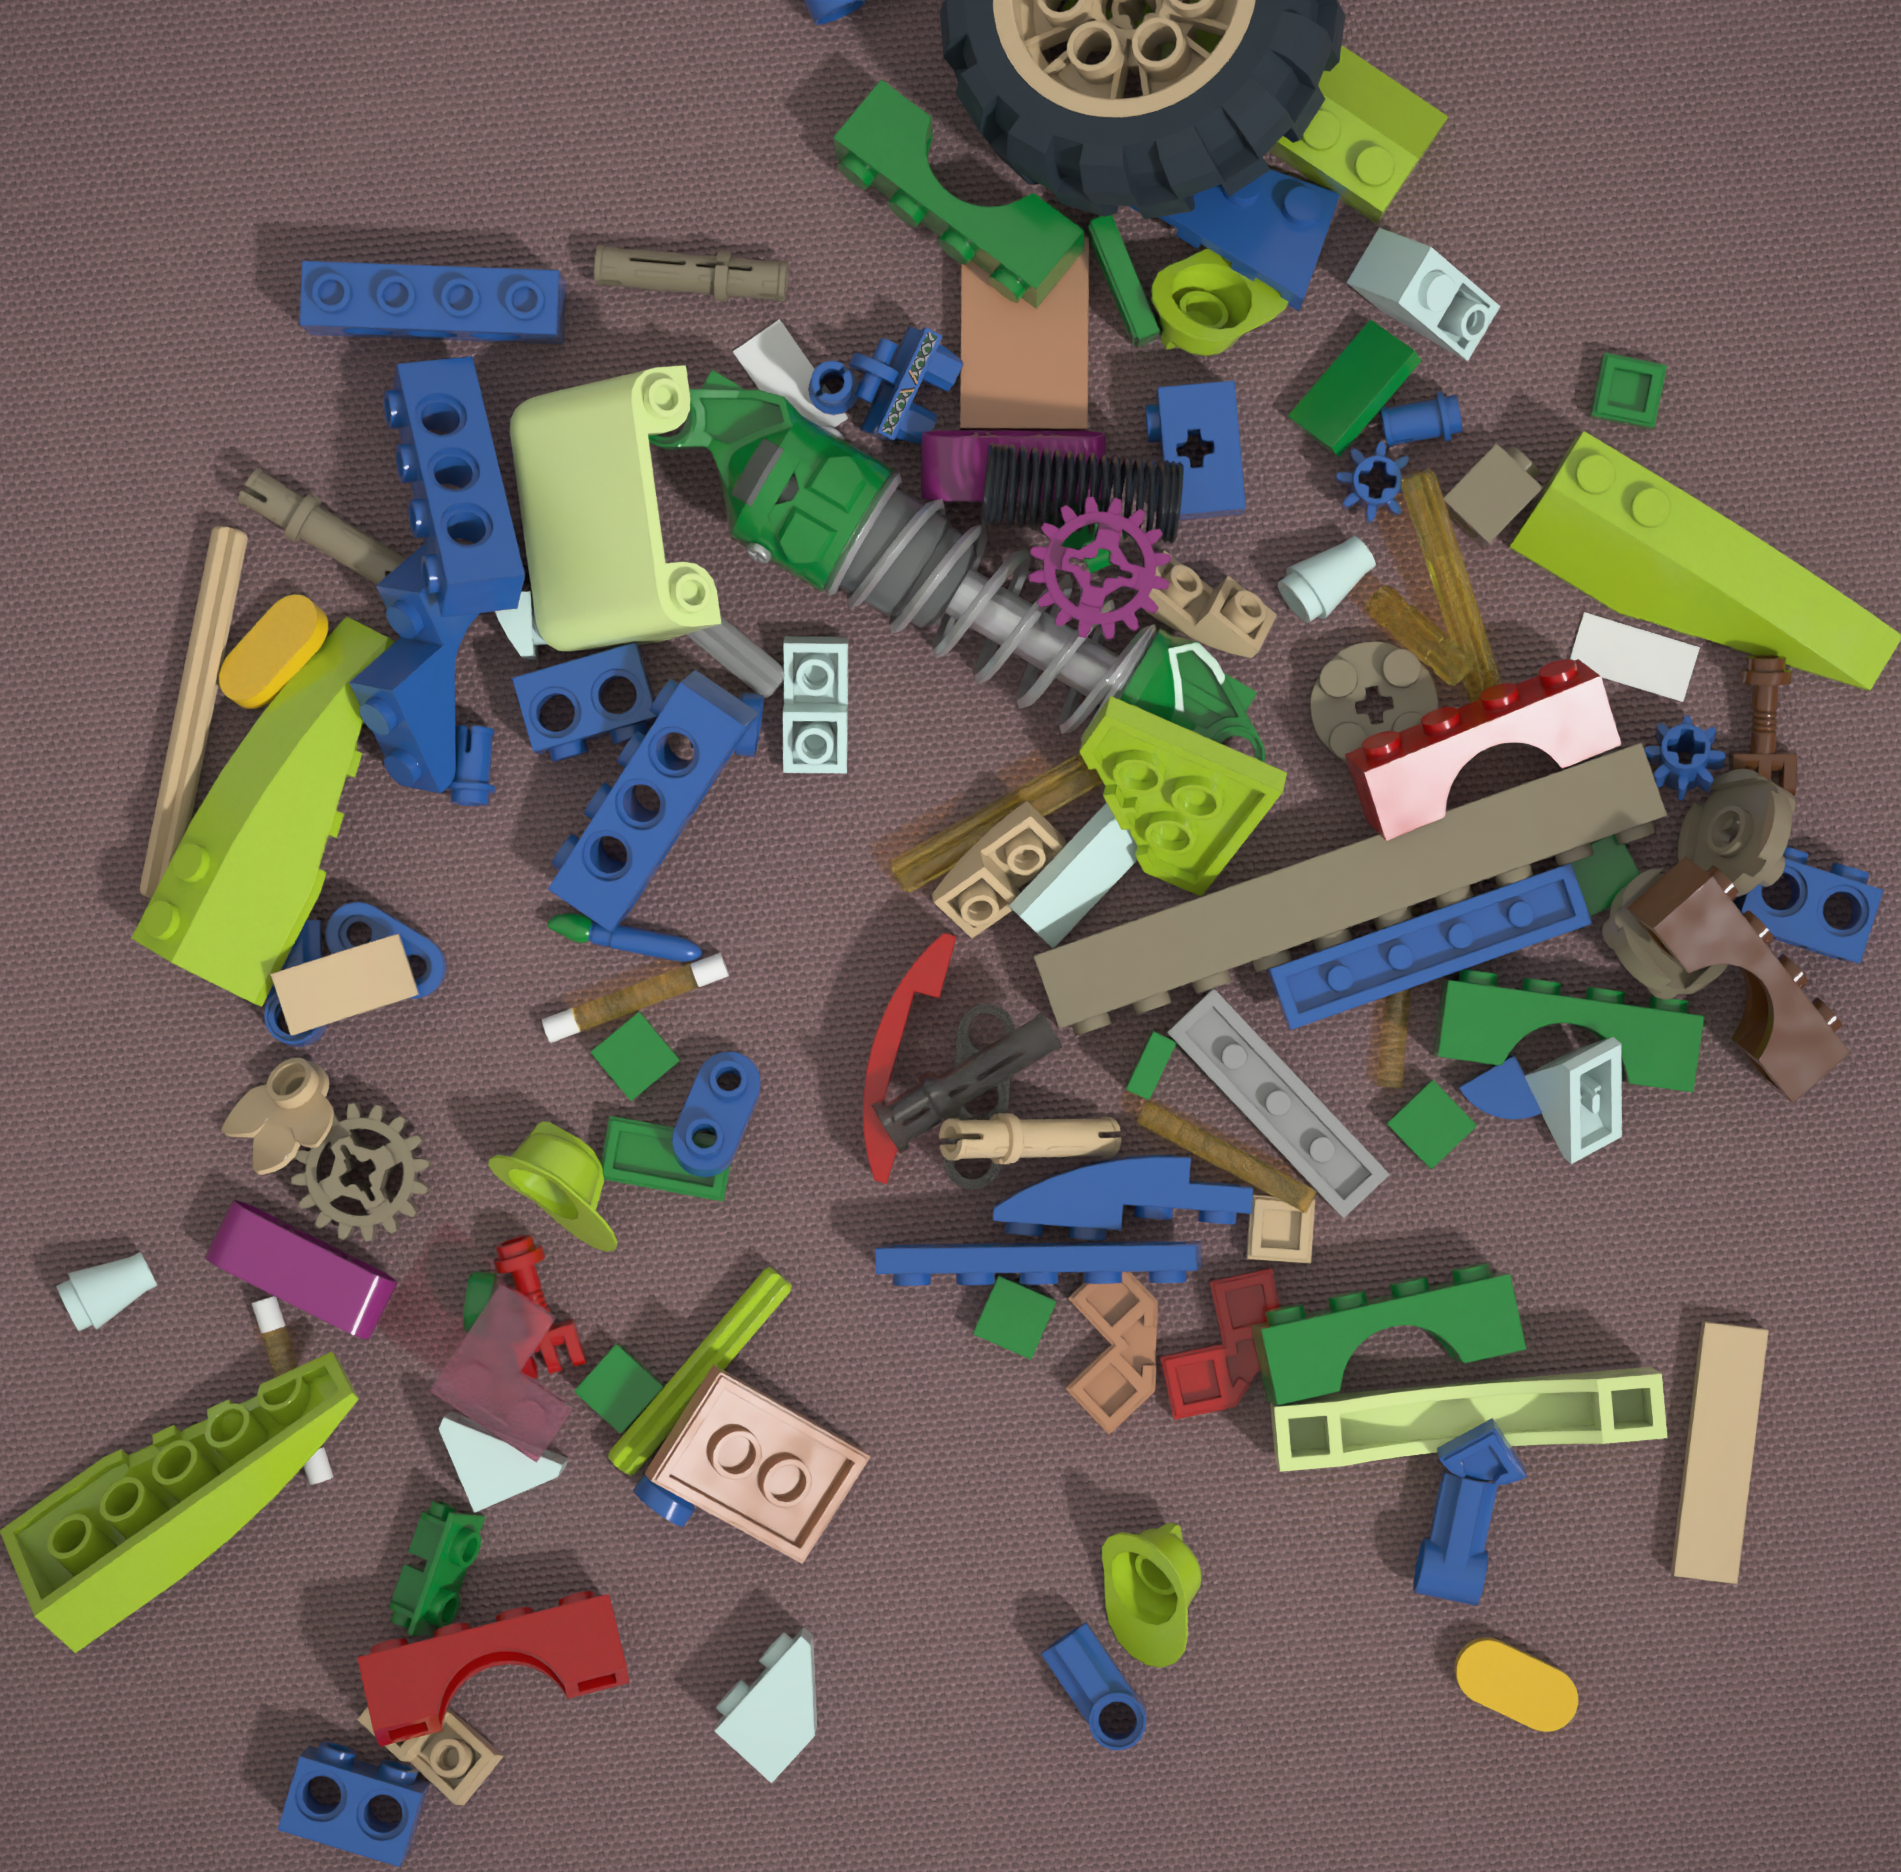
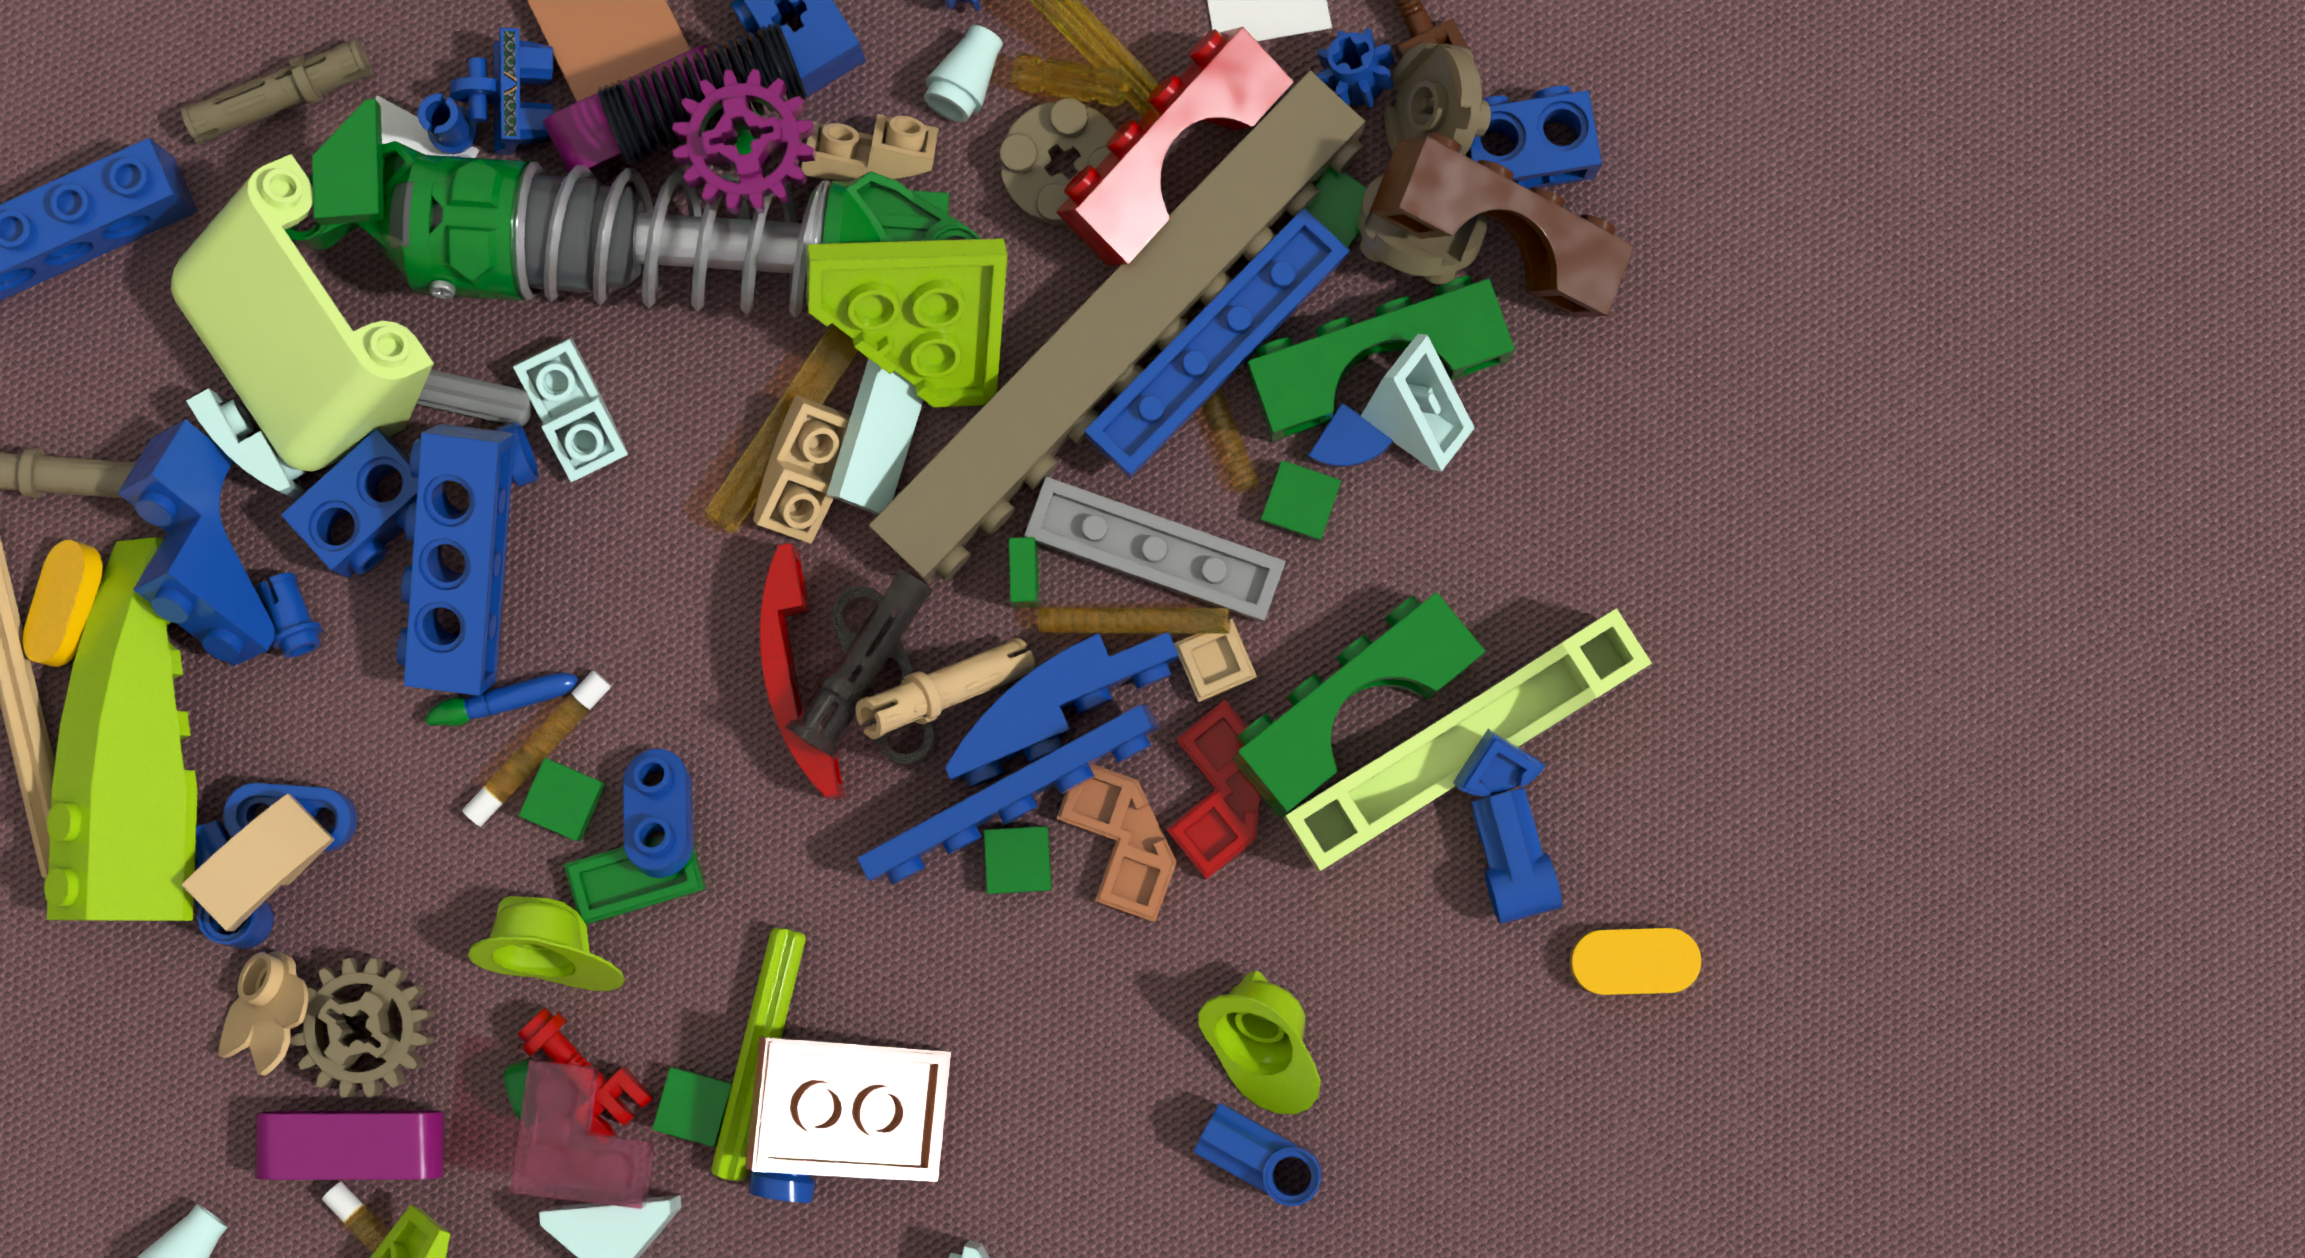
camera: 20 degrees left, 5 degrees down
(449, 399) = (145, 369): blue brick -> none
(730, 406) = (350, 170): none -> green tile
(1719, 1452) = (1706, 660): tan tile -> none

